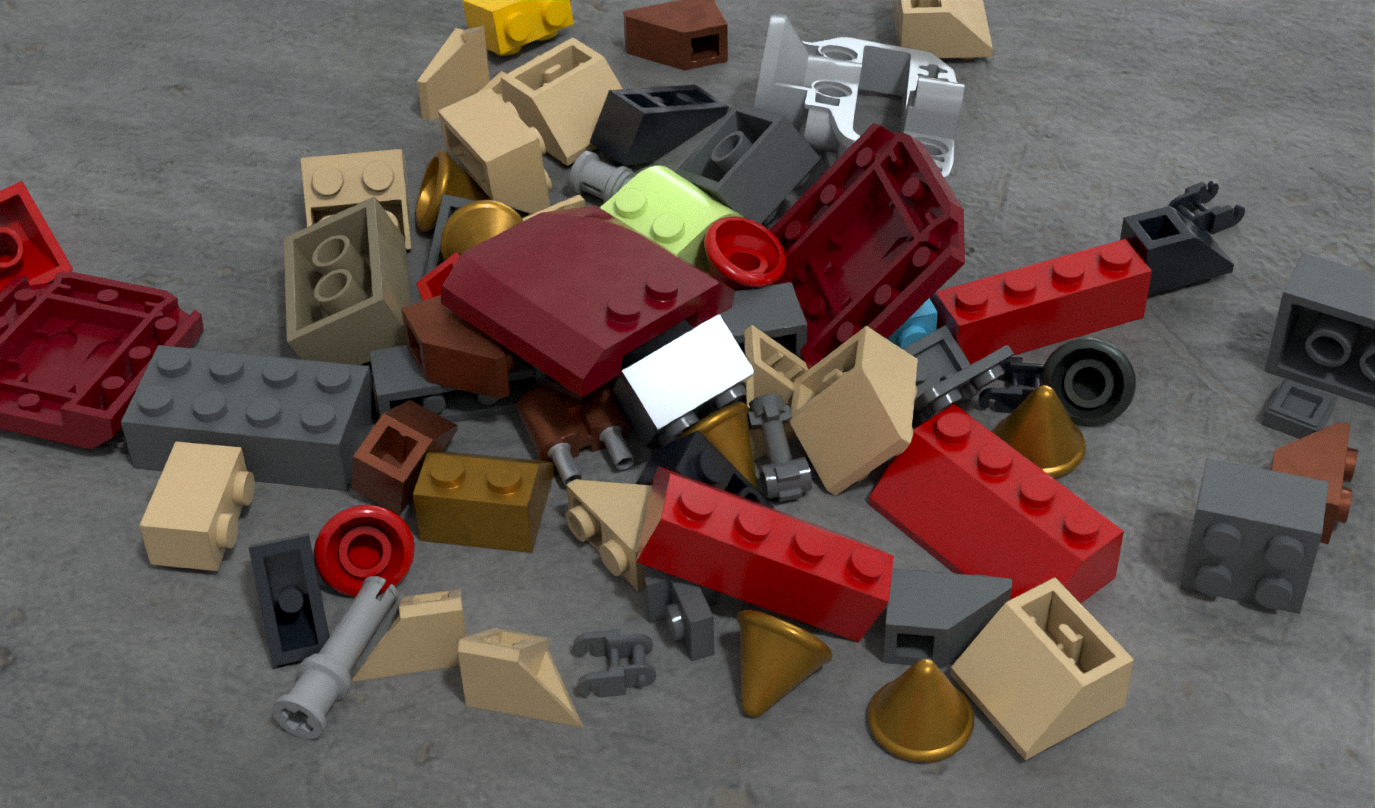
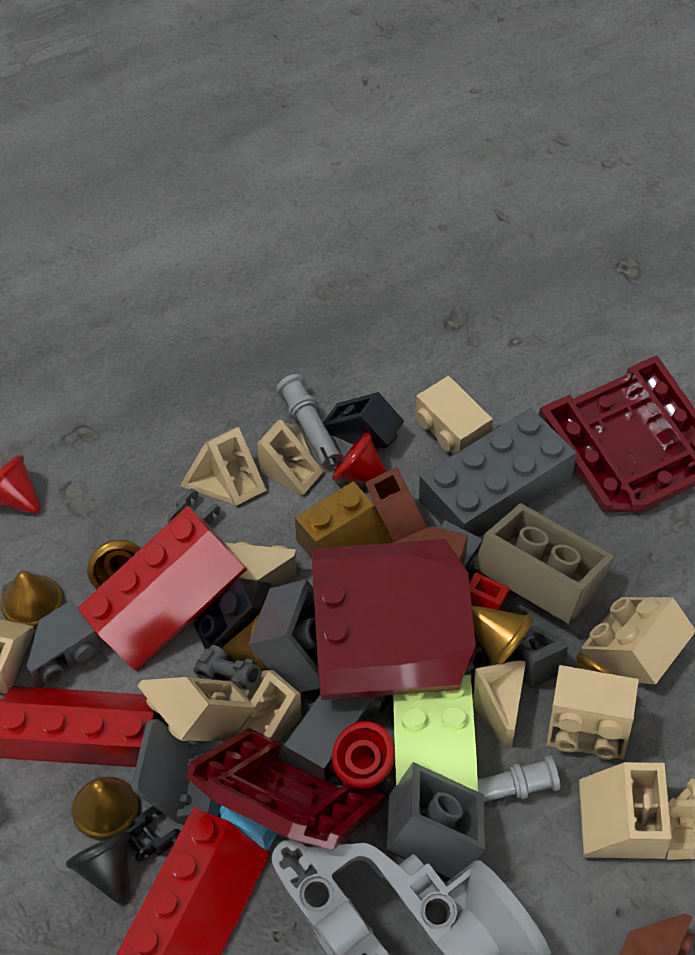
camera: 135 degrees right, 10 degrees up
(652, 121) = (563, 861): black slope -> none

